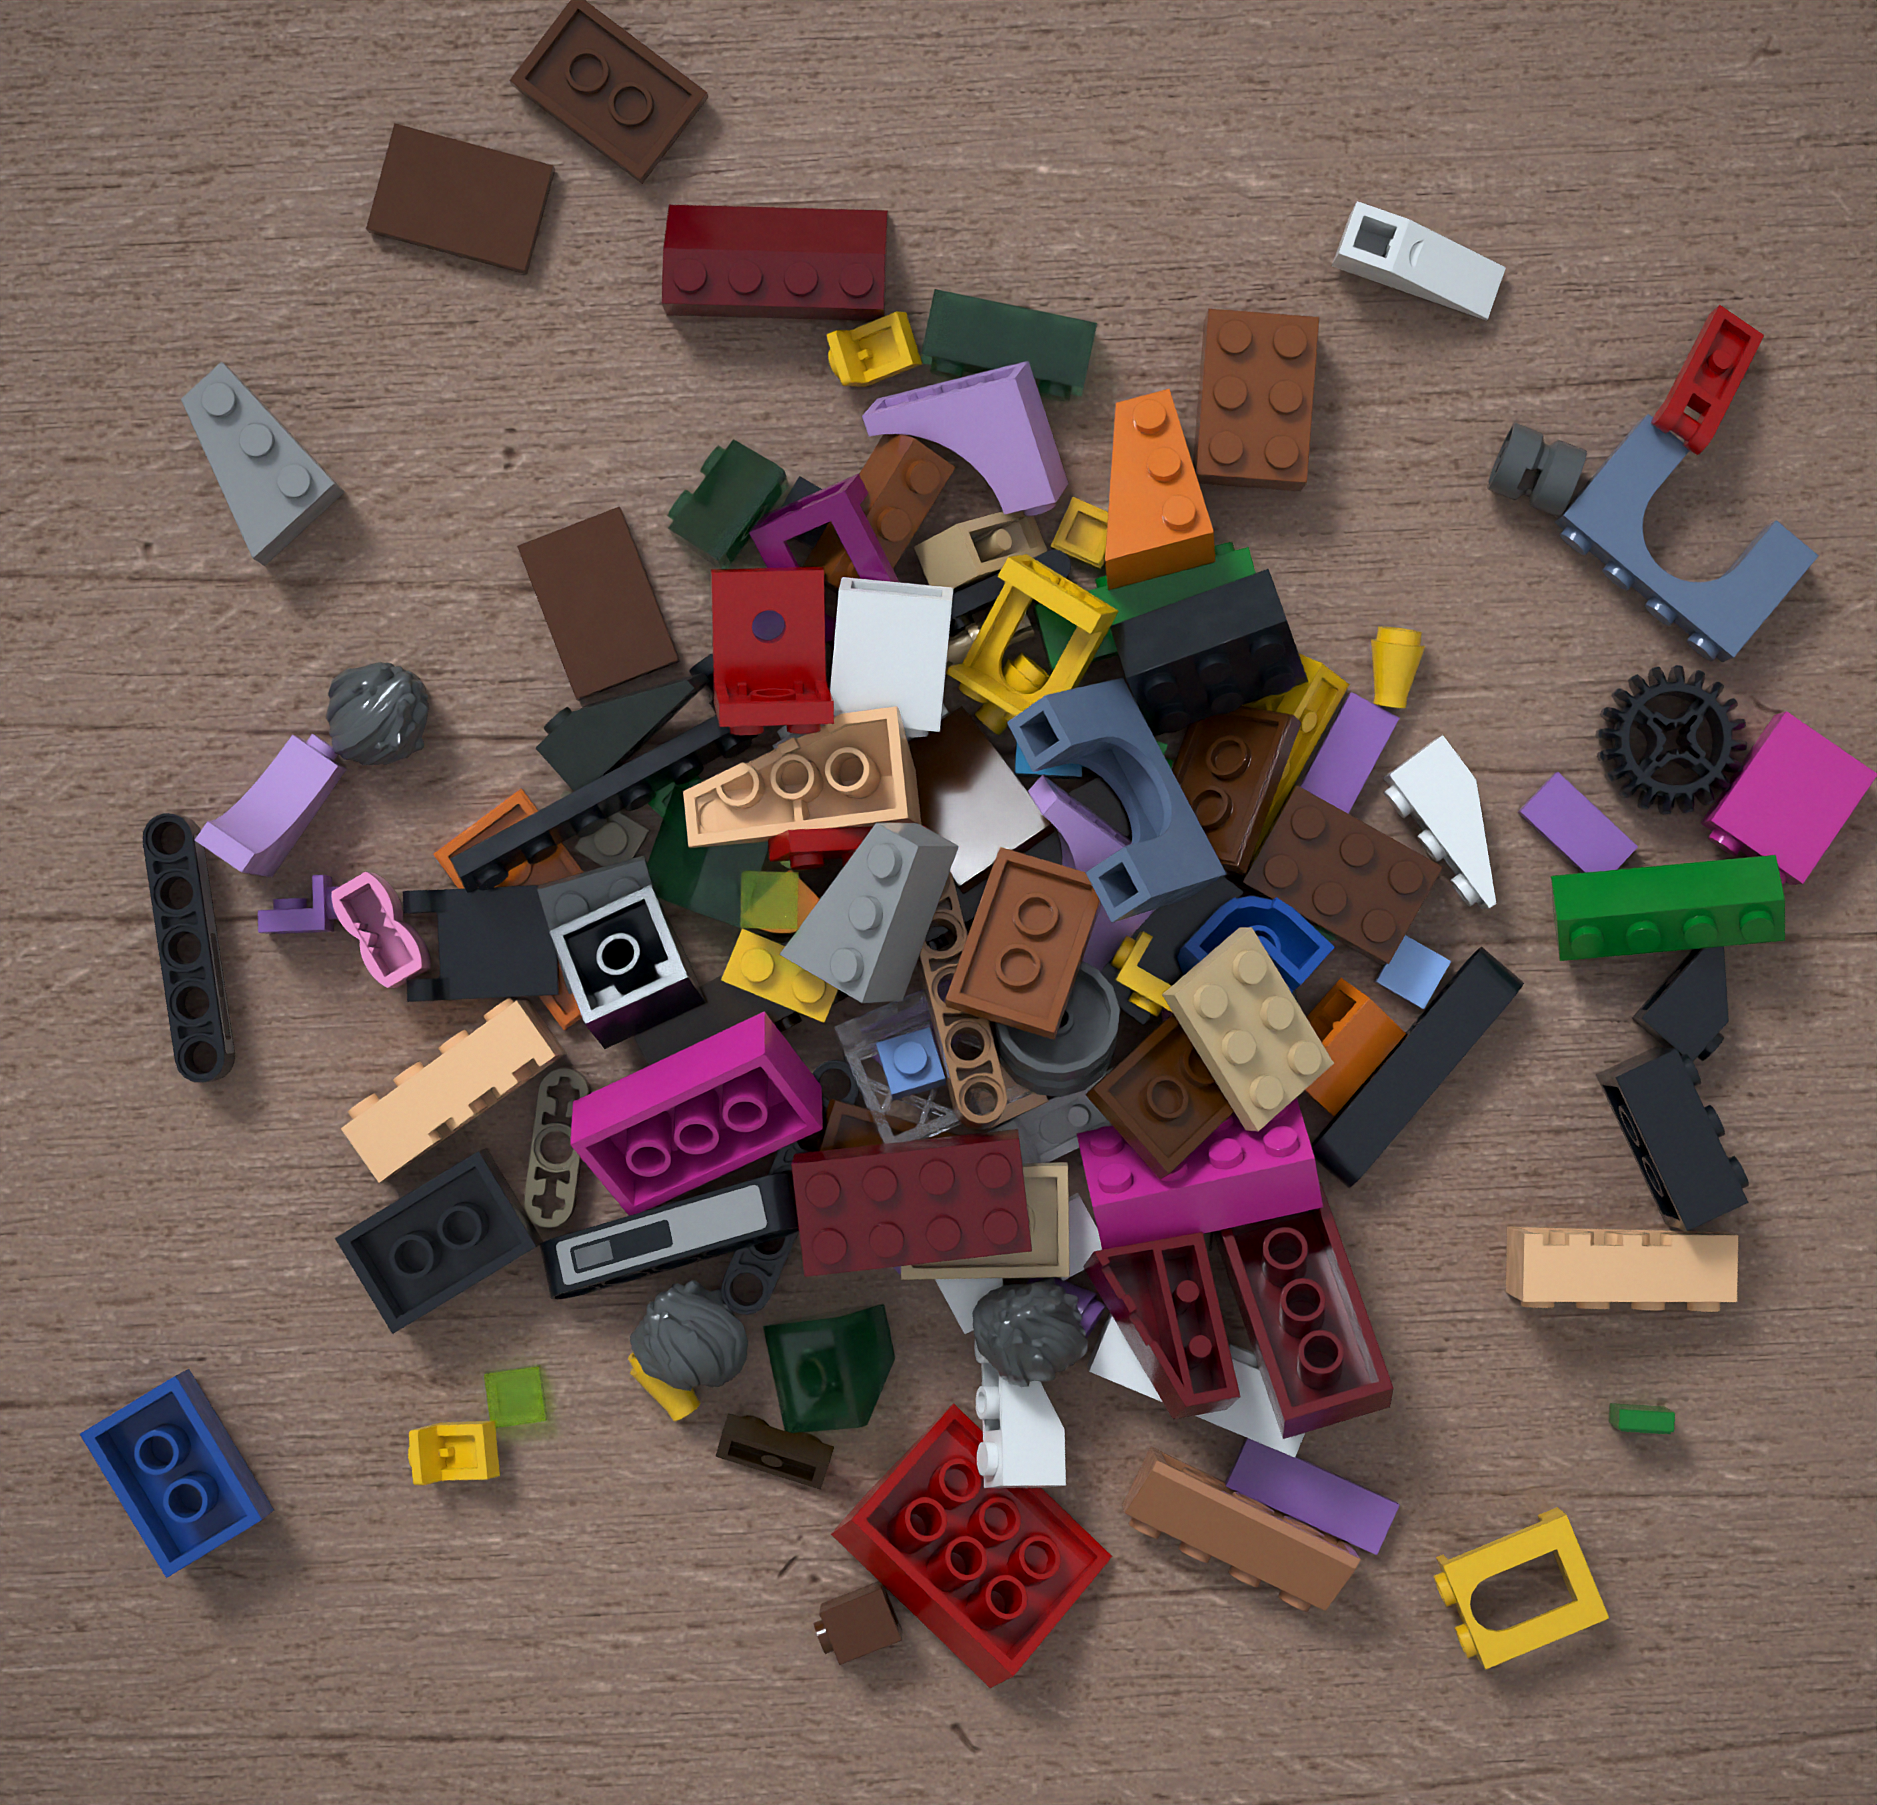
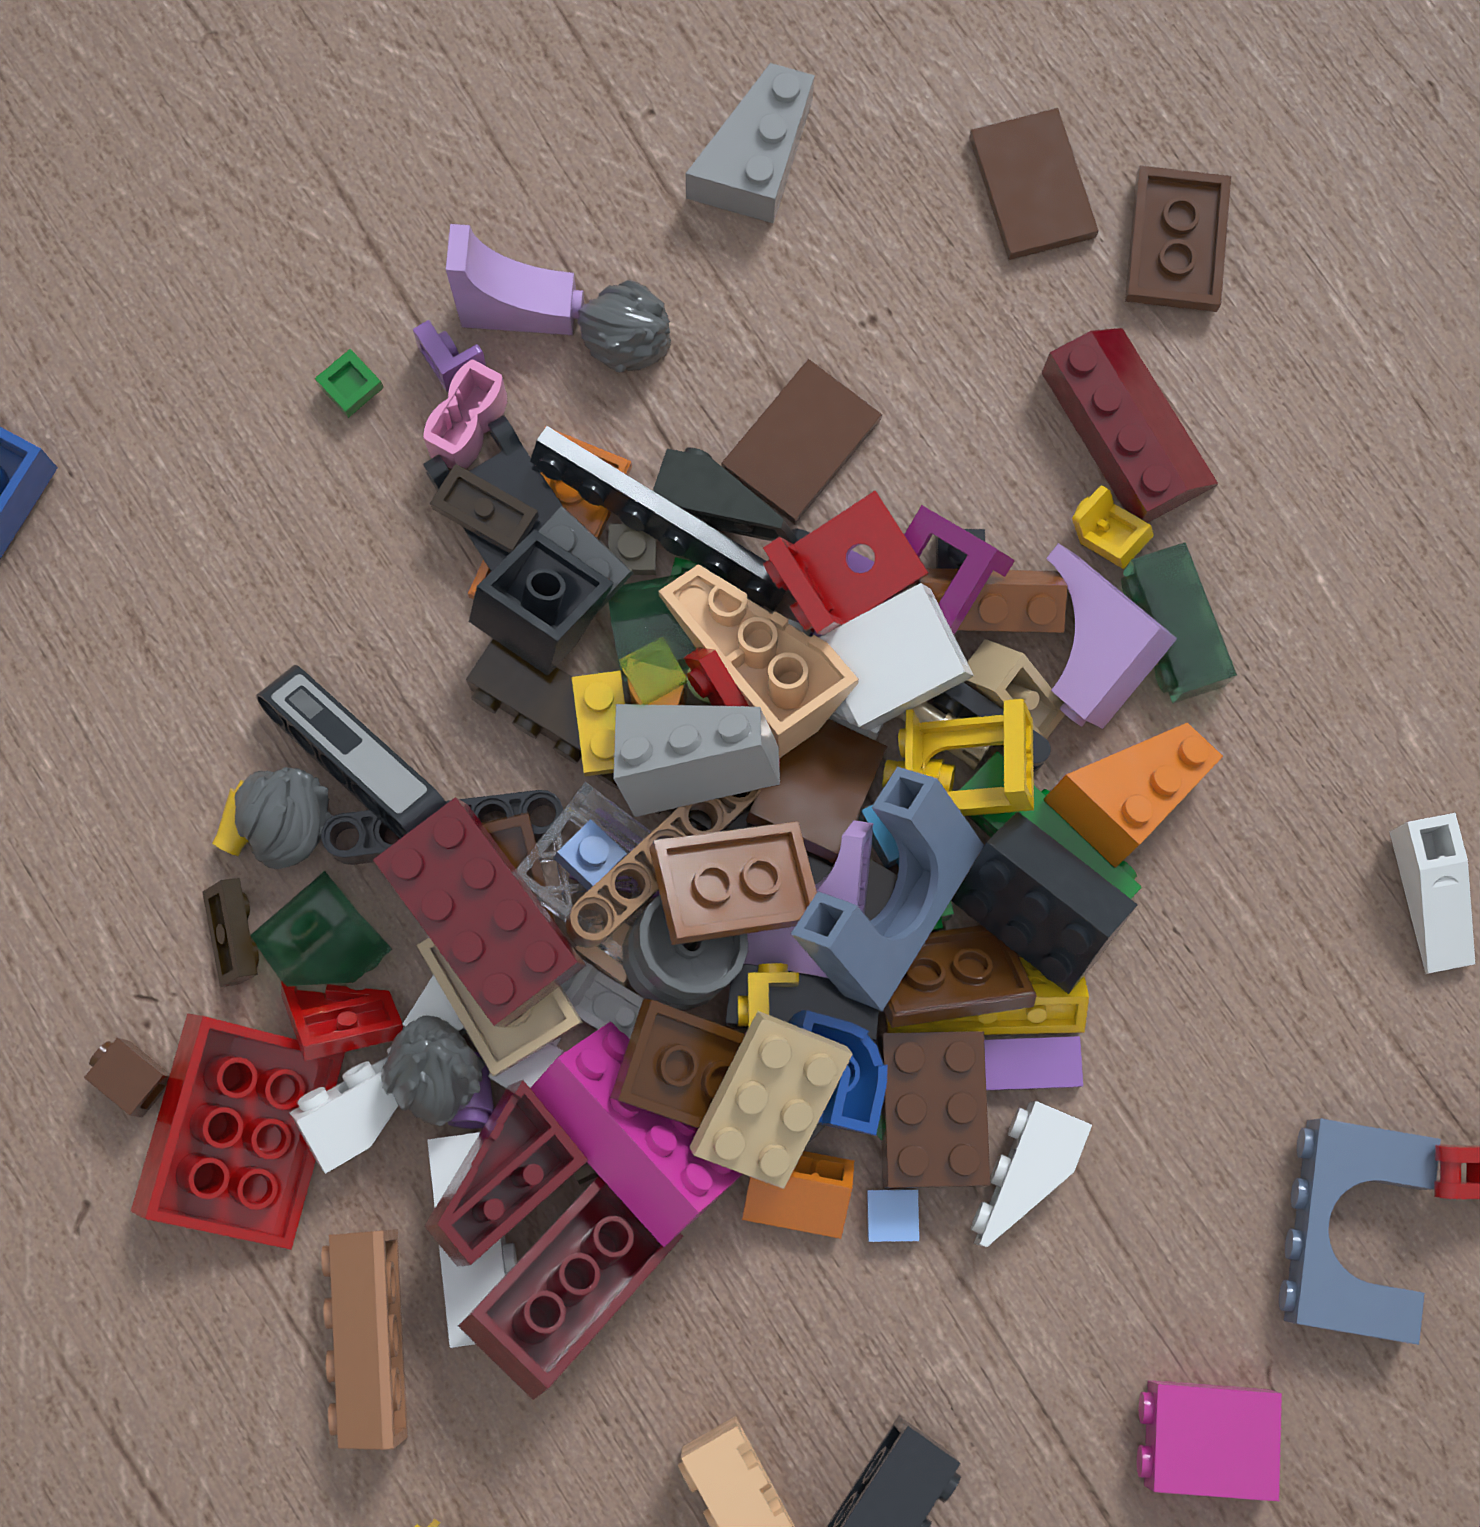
camera: 55 degrees right, 10 degrees down
(207, 969) = (363, 313): black beam -> none
(271, 1026) = (349, 383): none -> green plate
(439, 1240) = (254, 587): black brick -> none
(452, 1089) = (377, 535): light nougat wedge -> none
(453, 1452) = (96, 690): yellow bracket -> none
(493, 967) = (484, 509): none -> dark brown plate
(515, 1396) = (167, 716): clear neon green tile -> none
(537, 1186) = (347, 663): dark tan beam -> none
(697, 1115) = (457, 717): dark pink brick -> none
(727, 503) = (944, 484): clear green slope -> none
(923, 1390) = (340, 1019): none -> red wing
(1083, 533) = (1070, 756): yellow tile -> none
(1255, 399) = (1254, 829): dark orange brick -> none
(1312, 1495) = (429, 1385): medium lavender tile -> none
(1395, 664) = (1122, 1058): yellow cone -> none
(1415, 1067) = (819, 1261): black beam -> none
(1556, 473) = (1336, 1097): dark grey wheel -> none
(1576, 827) = (1083, 1282): medium lavender tile -> none
(1650, 724) = (1242, 1321): black gear -> none
(1668, 908) = (1068, 1392): green brick -> none
(1690, 1005) = (1001, 1458): black slope -> none

